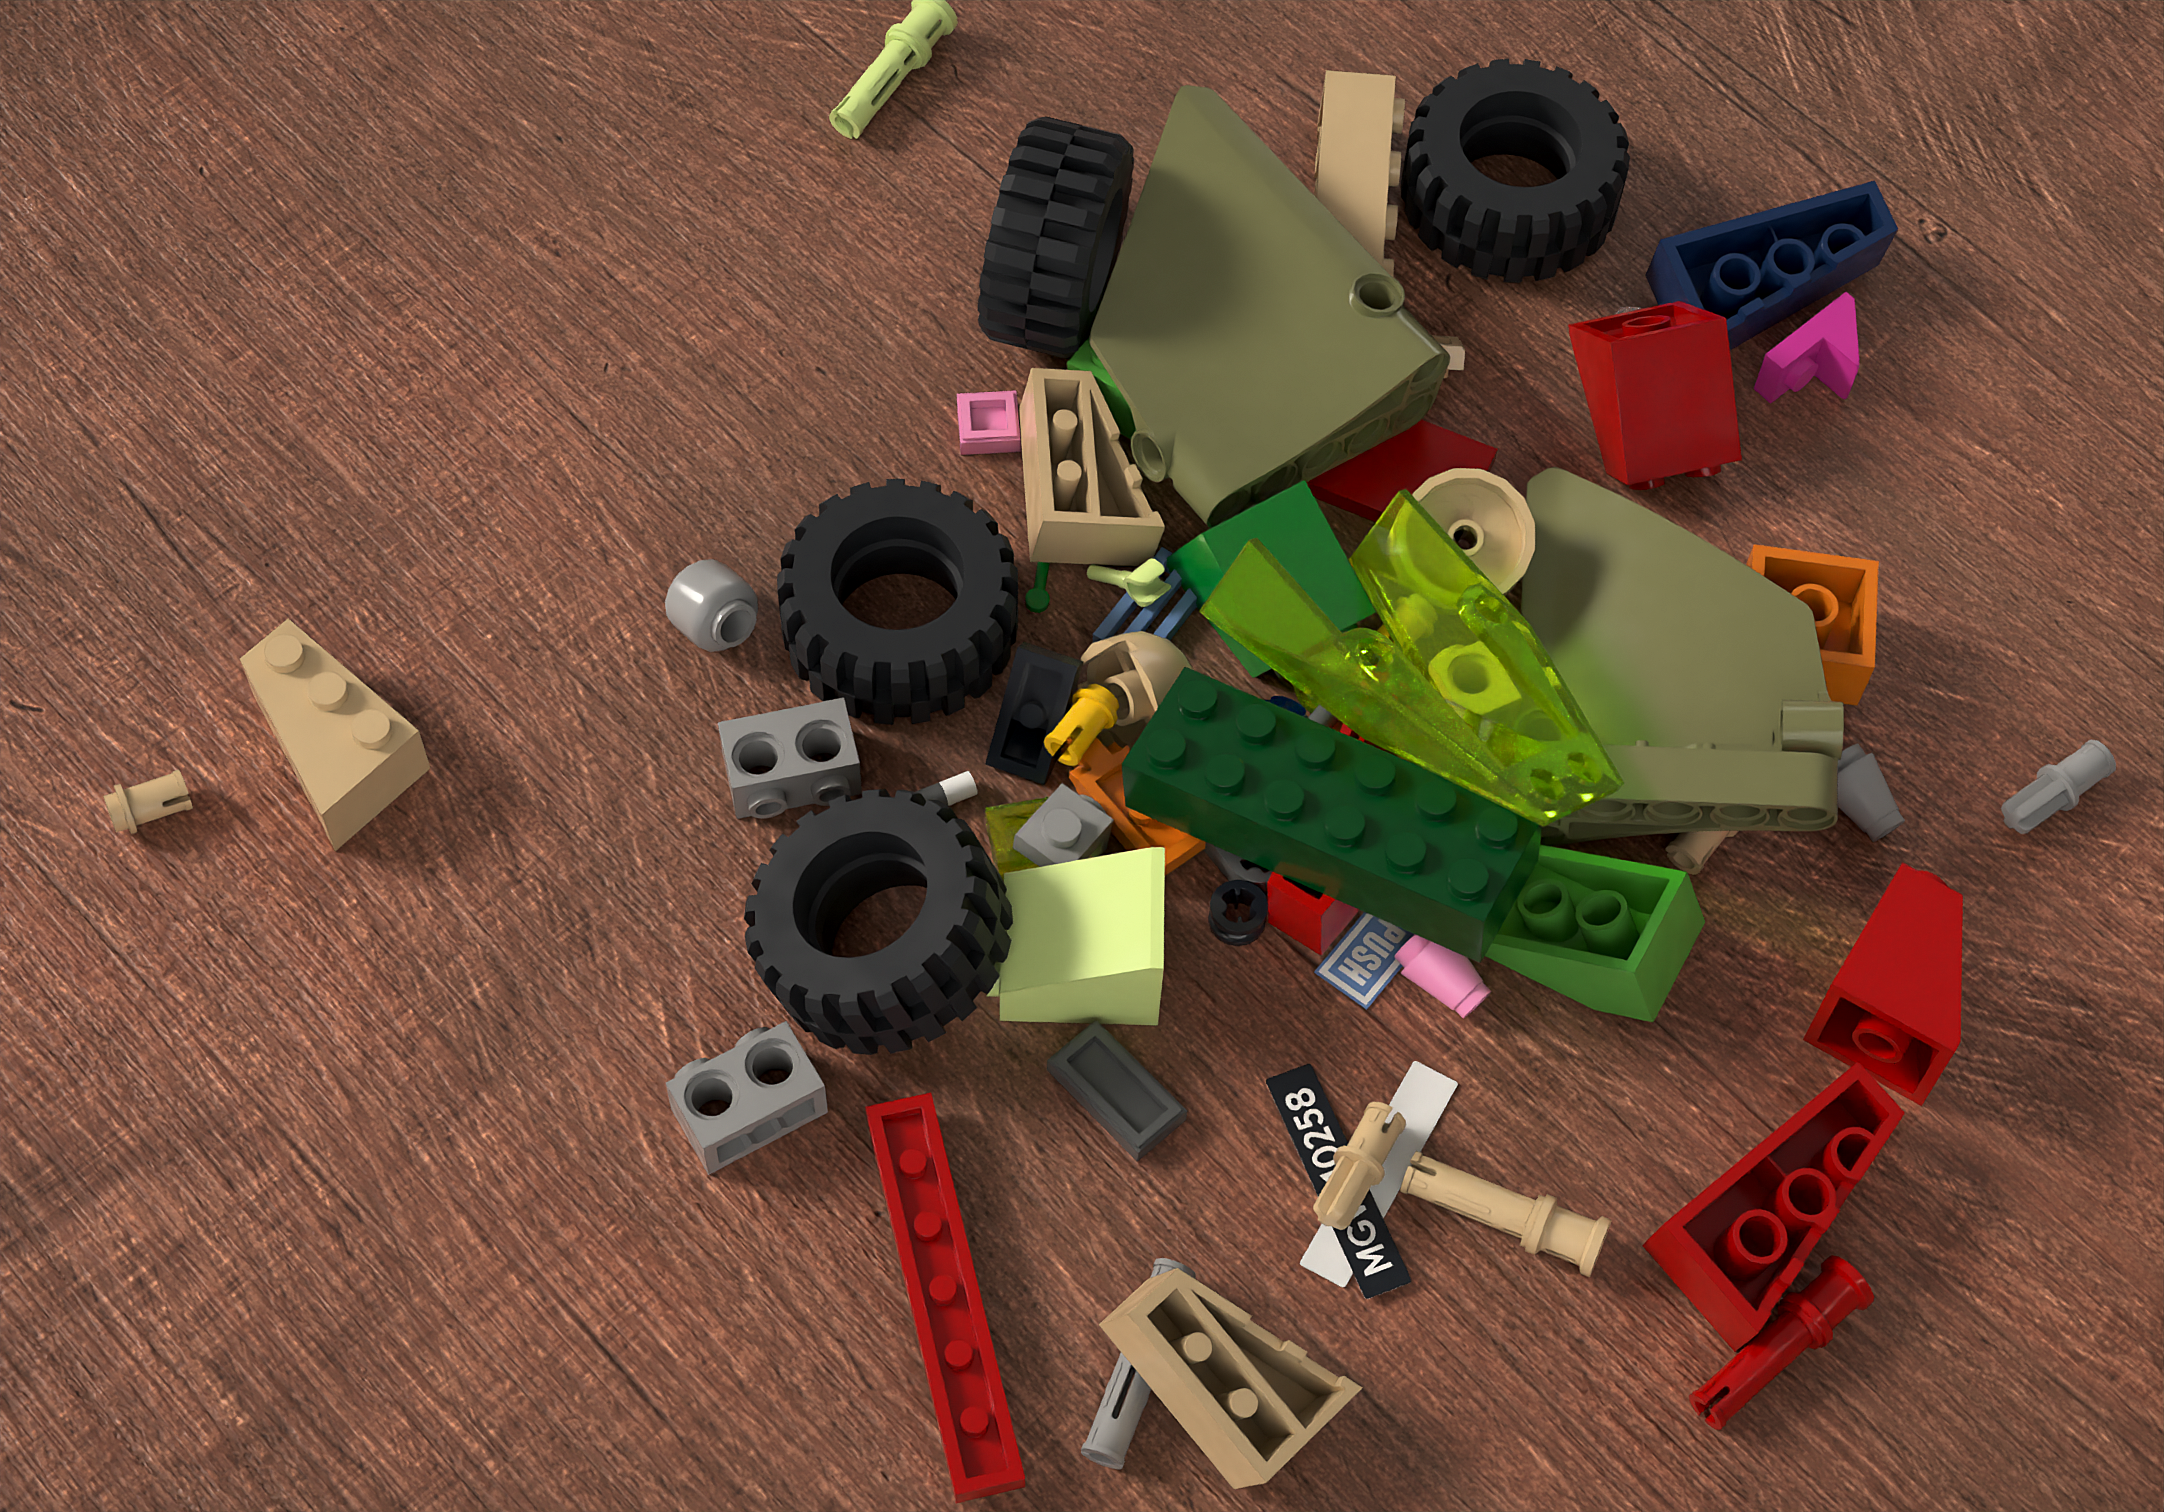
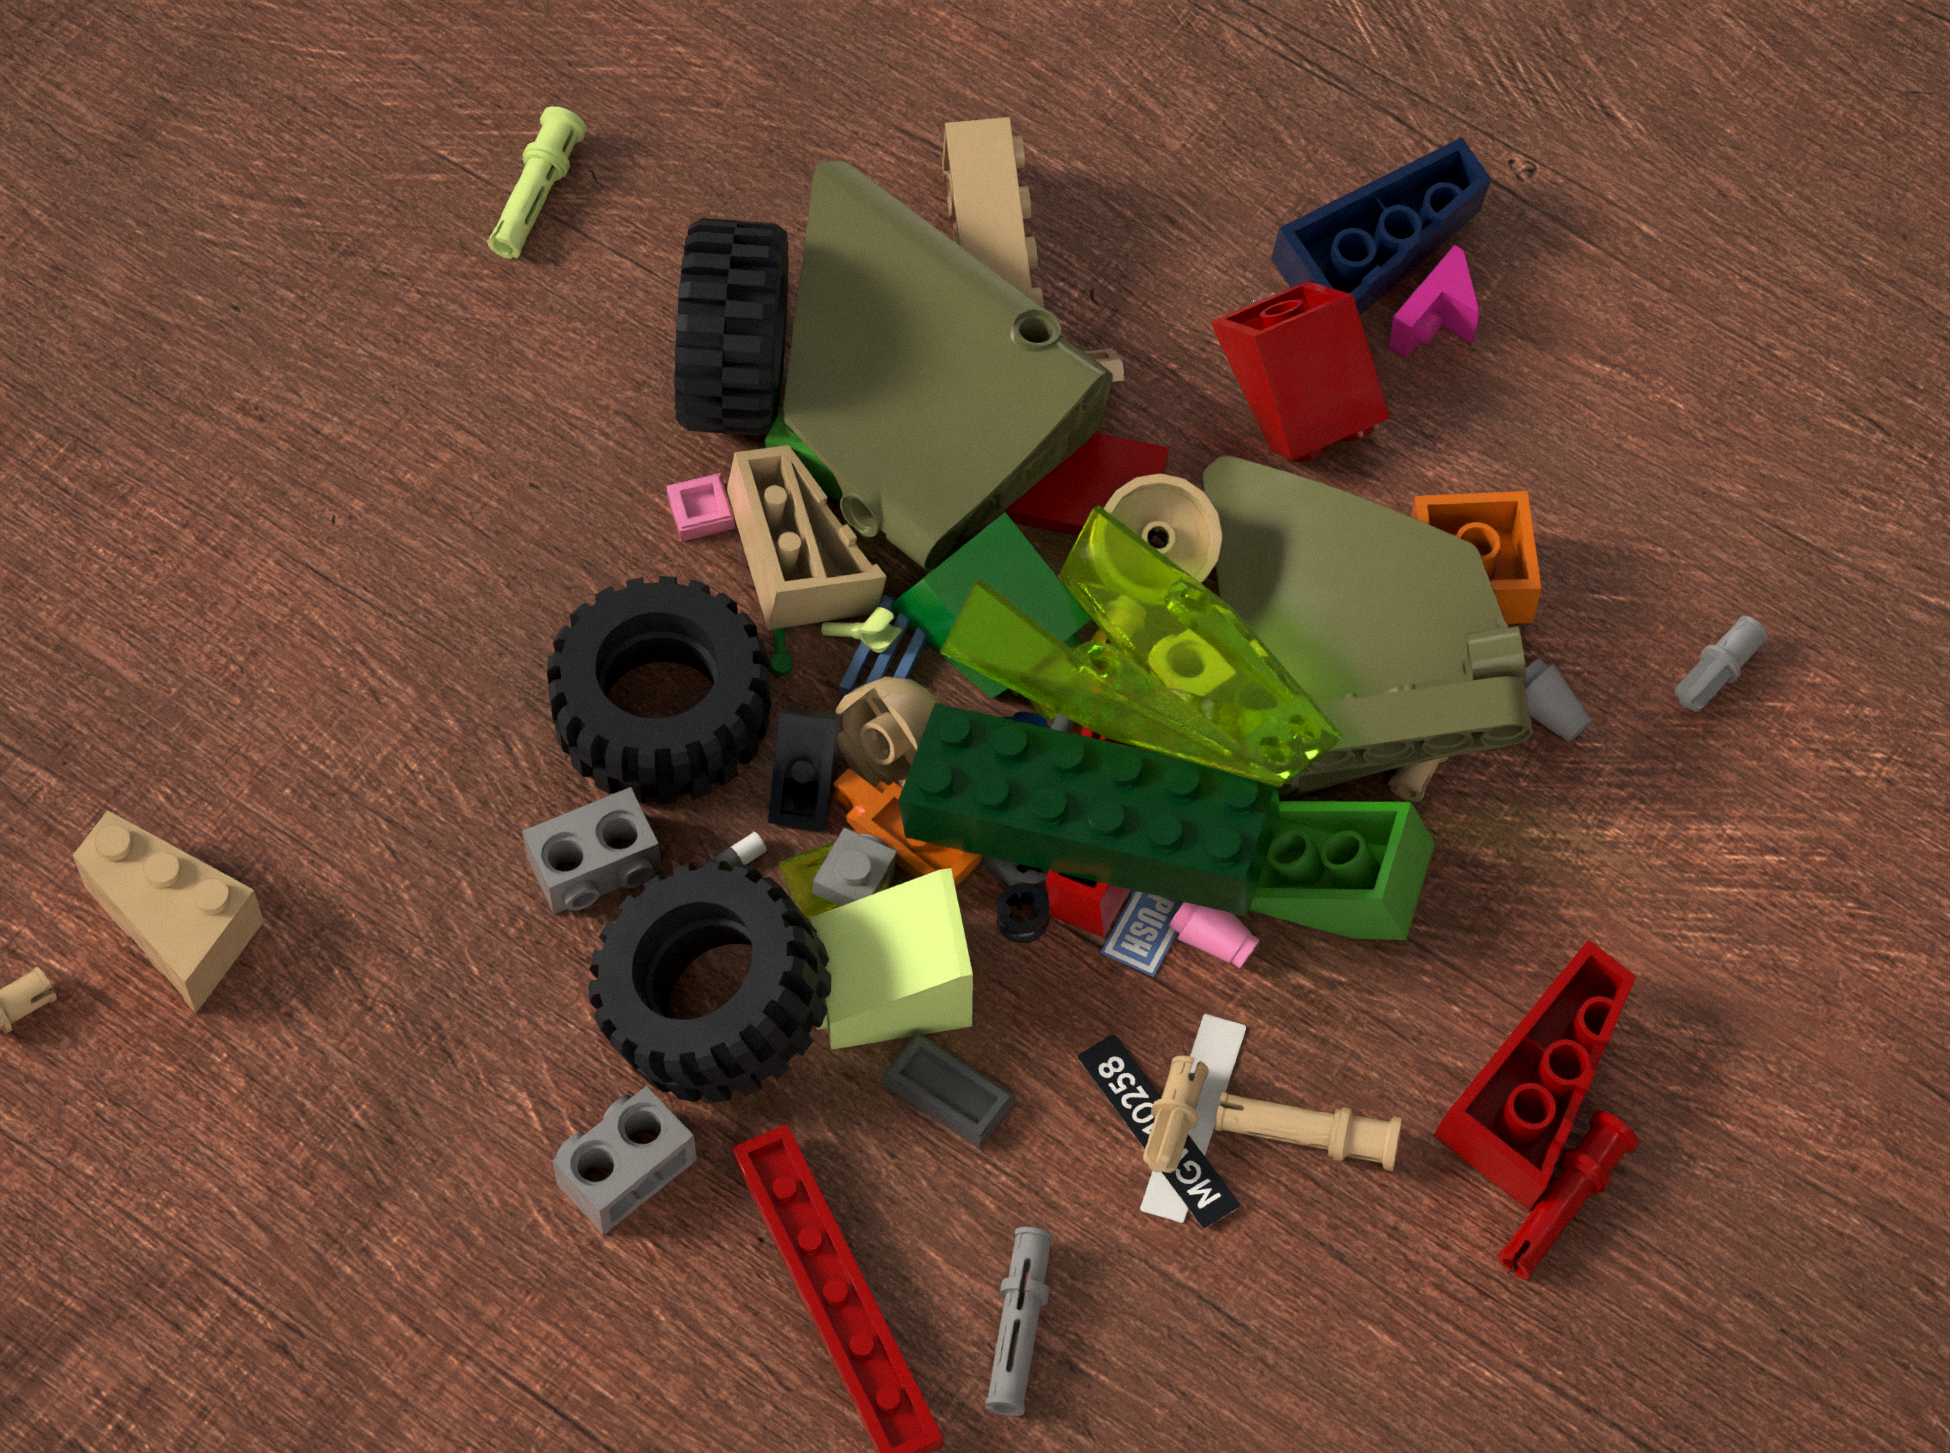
camera: 10 degrees left, 0 degrees up
(712, 605) = (488, 725): light grey head -> none
(1090, 714) = (855, 759): yellow pin -> none
(1224, 1376) = (1096, 1316): tan wedge -> none
(1524, 115) = (1140, 128): black tyre -> none
(1899, 988) = (1612, 868): red slope -> none

